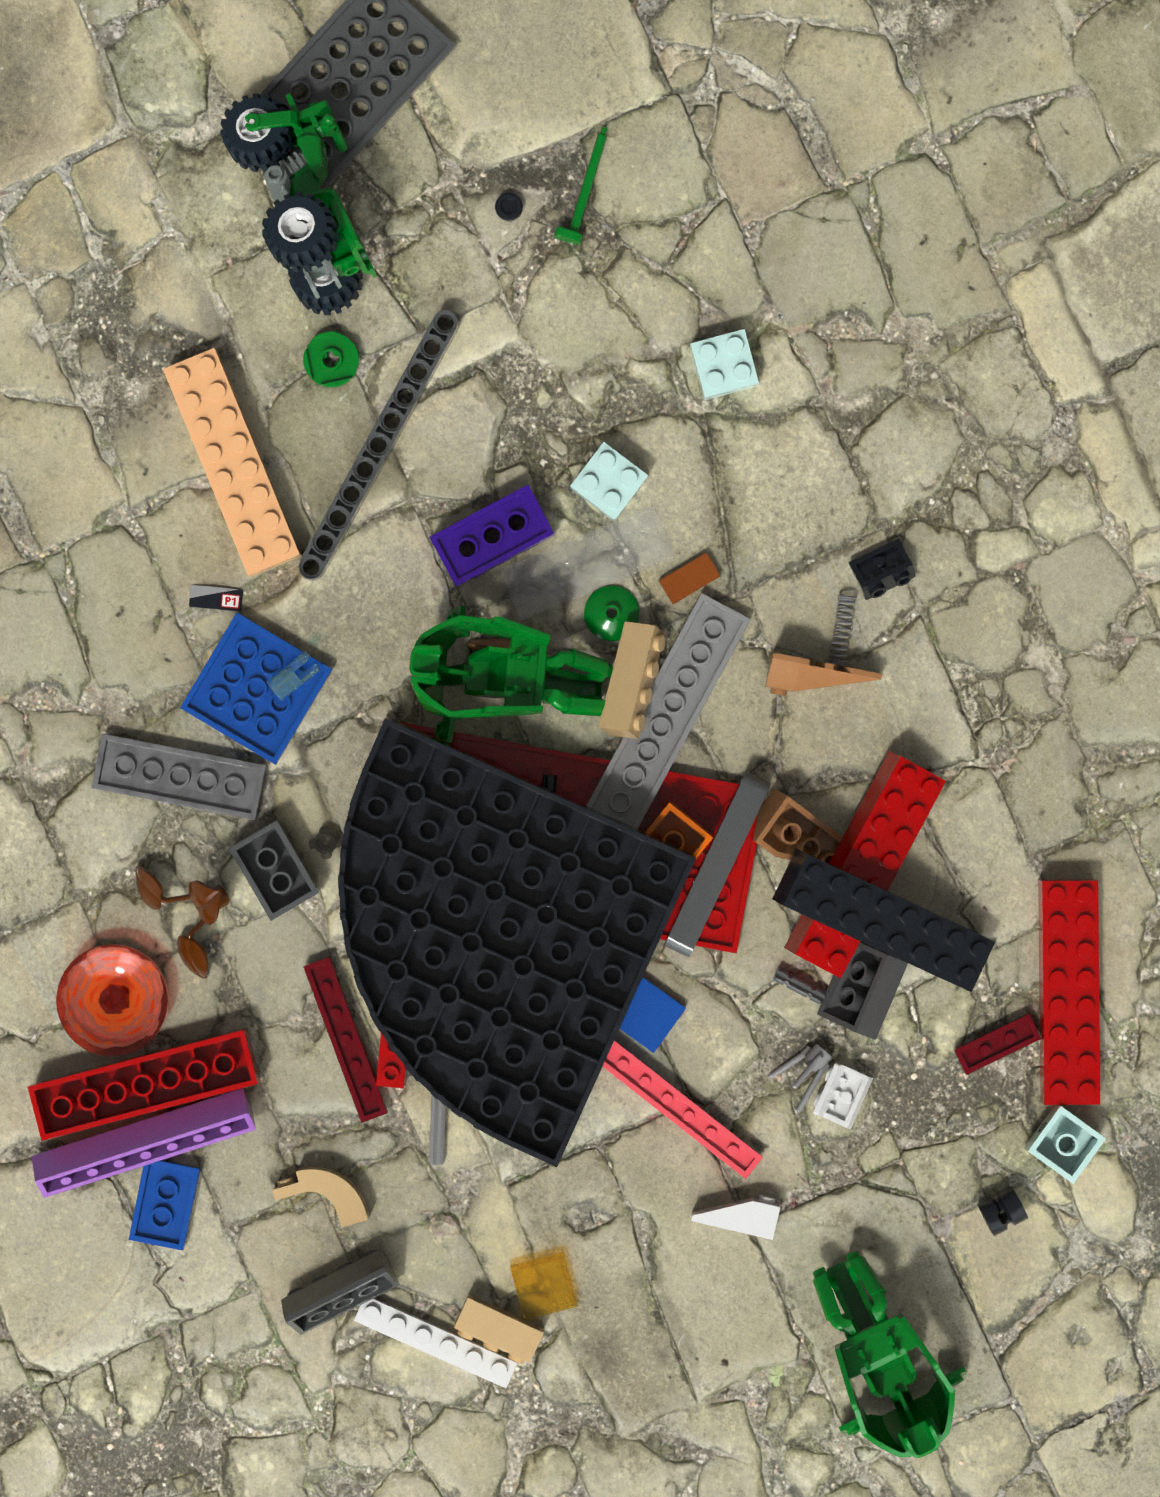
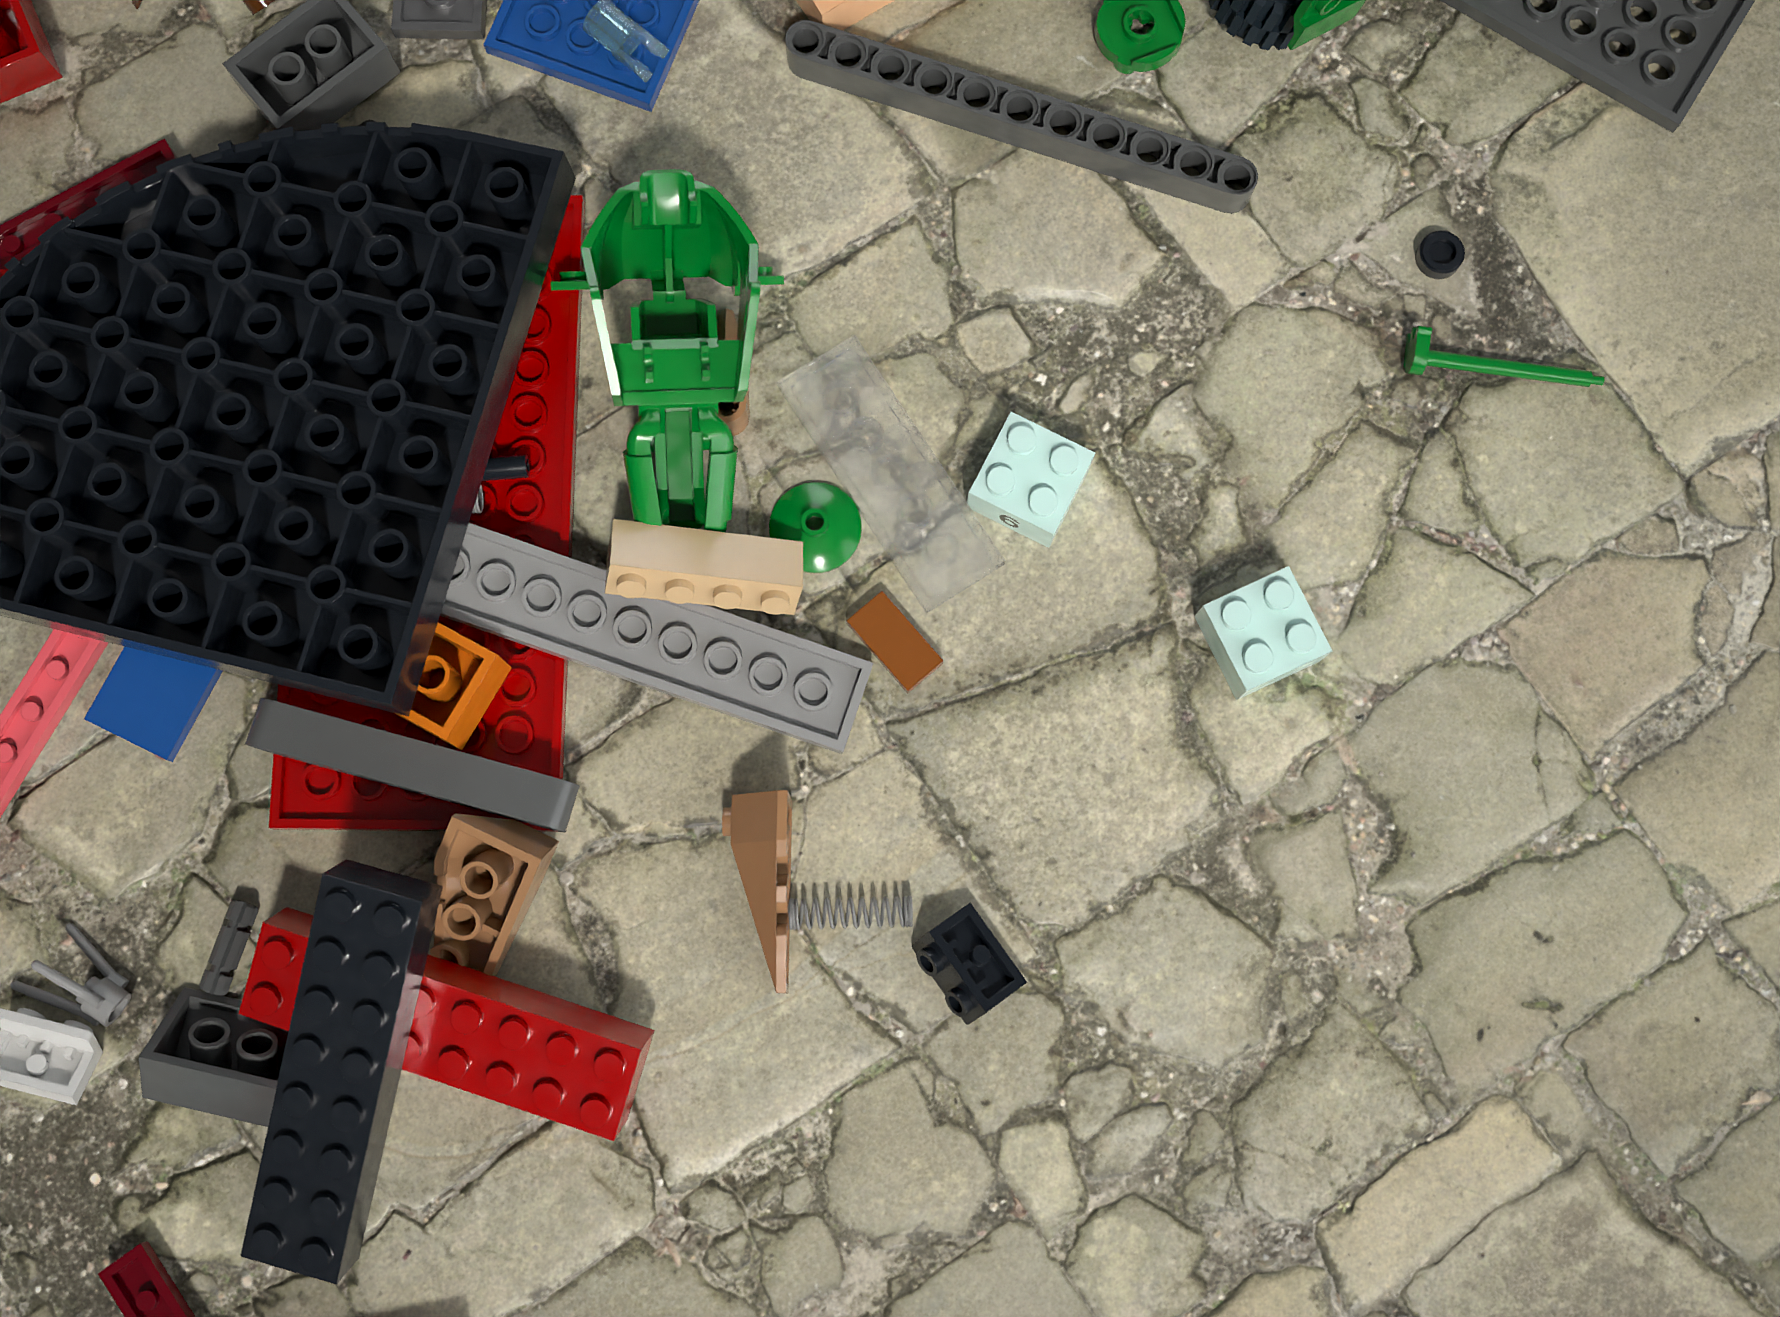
camera: 80 degrees right, 10 degrees down
(497, 517) = (914, 280): dark purple brick -> none

